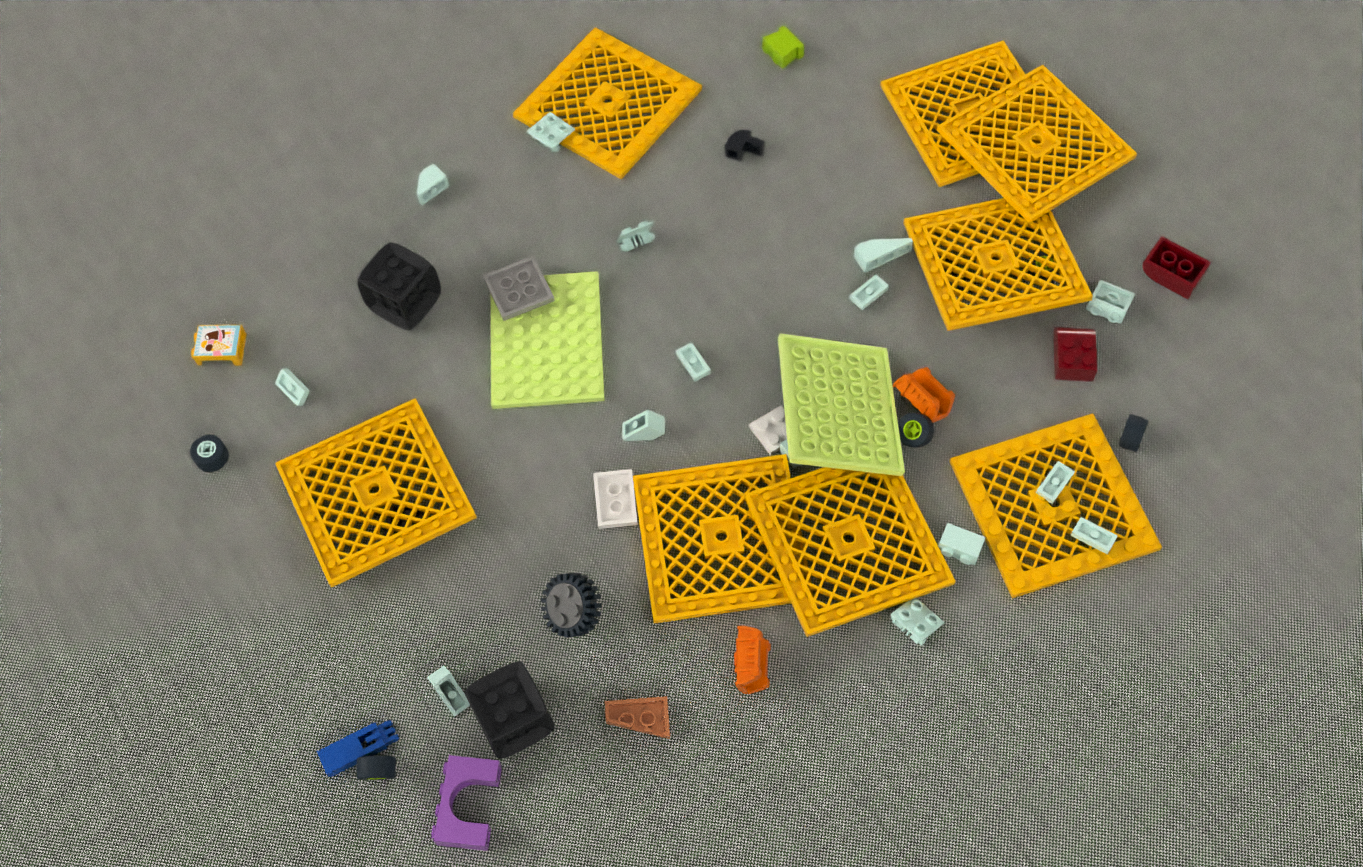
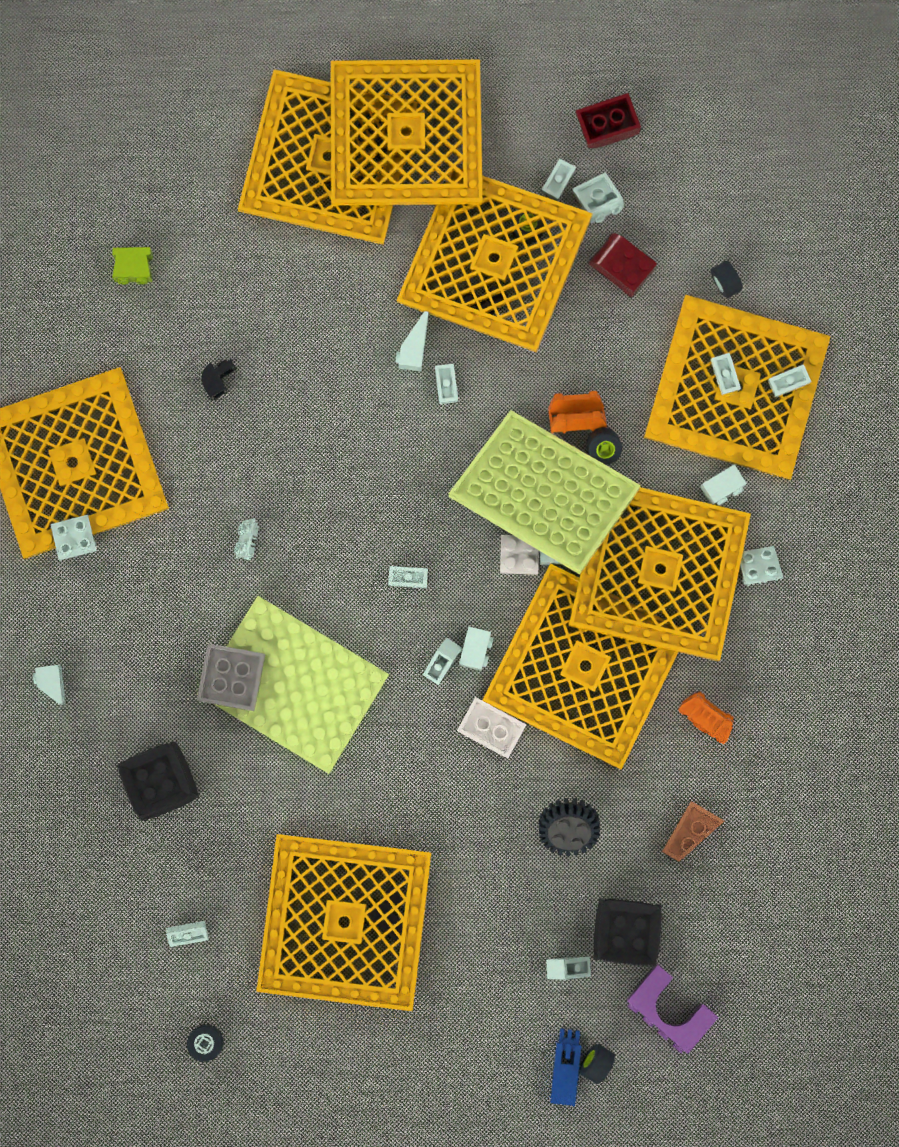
camera: 60 degrees left, 20 degrees up
(219, 343) = (94, 974): panel -> none
(672, 444) = (475, 649): none -> light aqua brick
(1098, 266) = (558, 179): none -> light aqua plate

